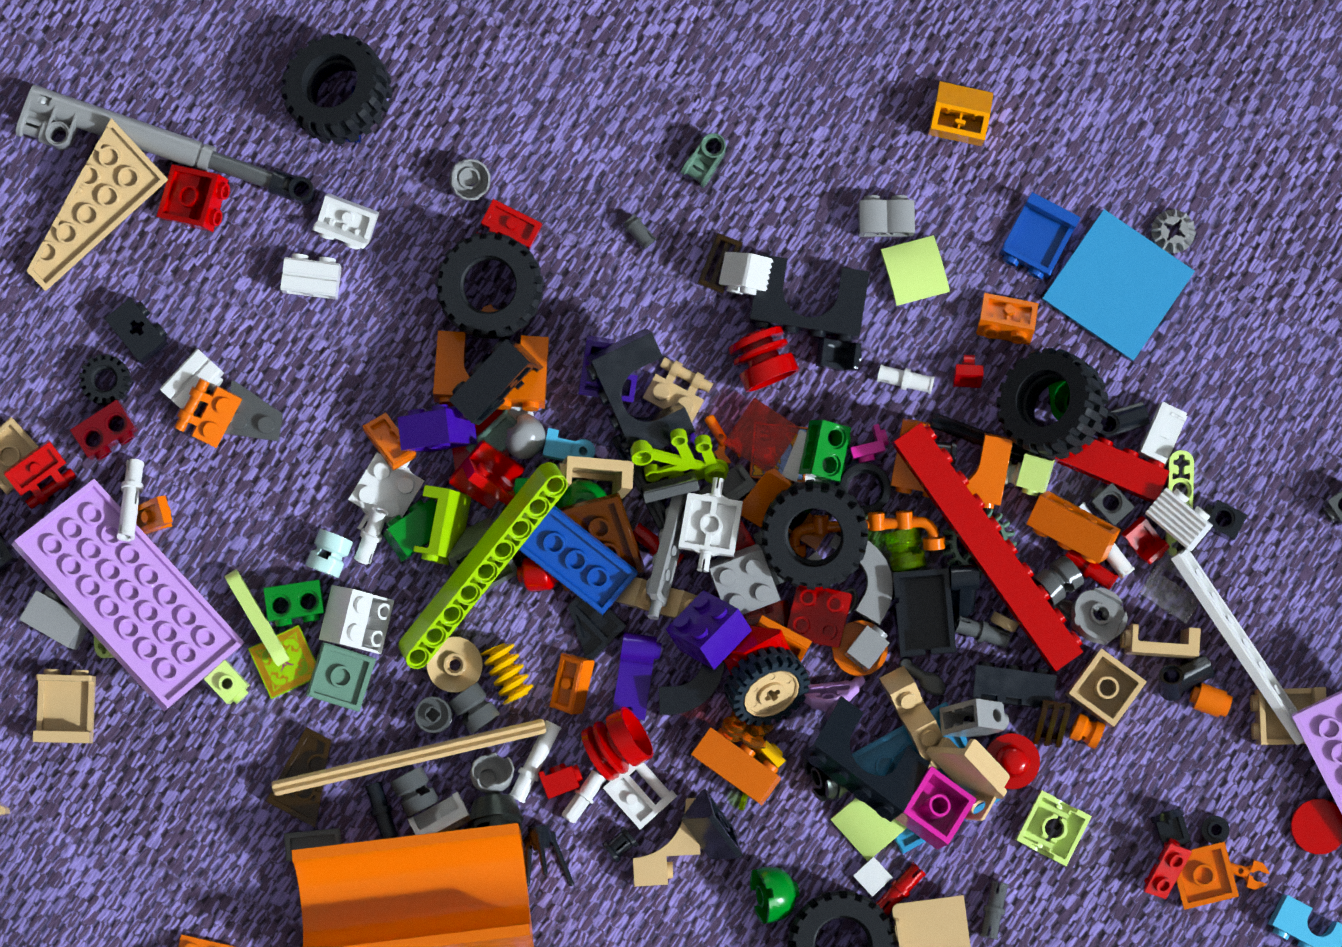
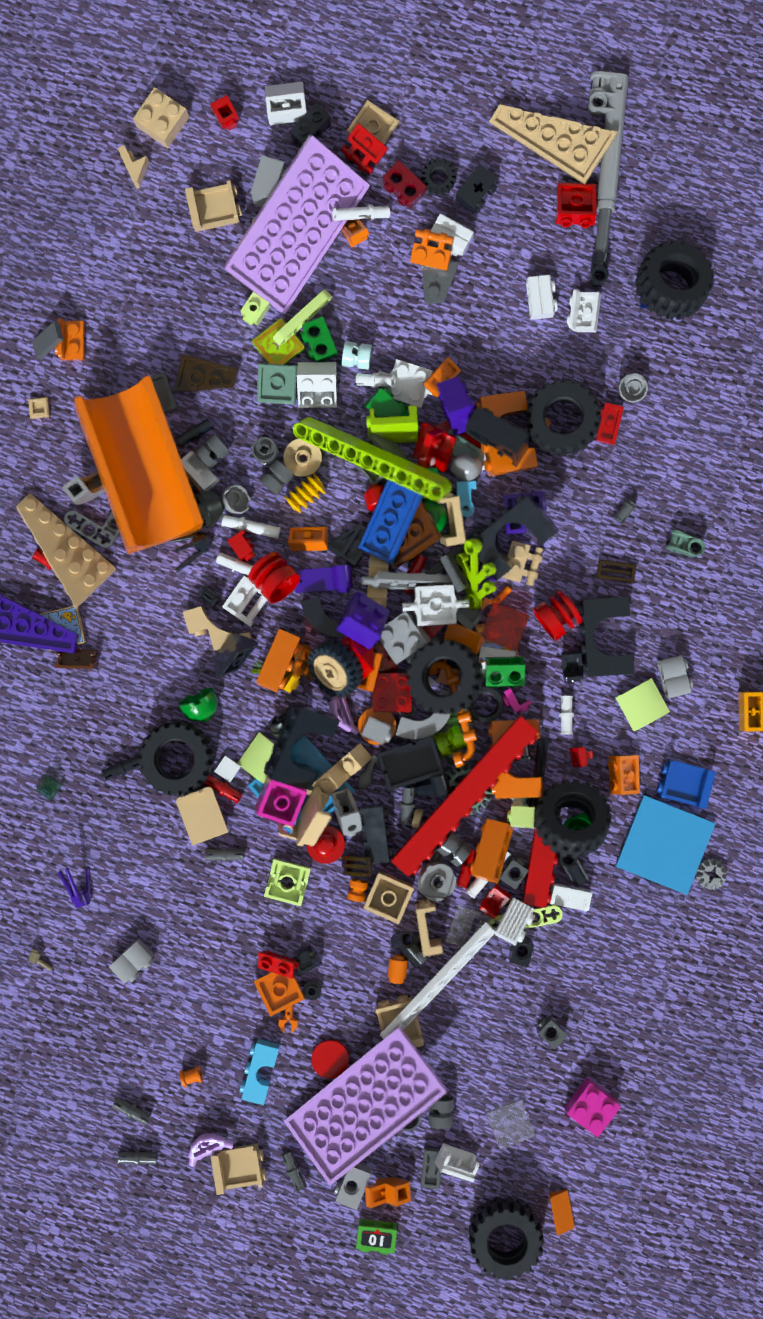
camera: 85 degrees right, 5 degrees up
(408, 757) = (233, 441): tan axle -> none
(745, 272) = (613, 589): white brick -> none

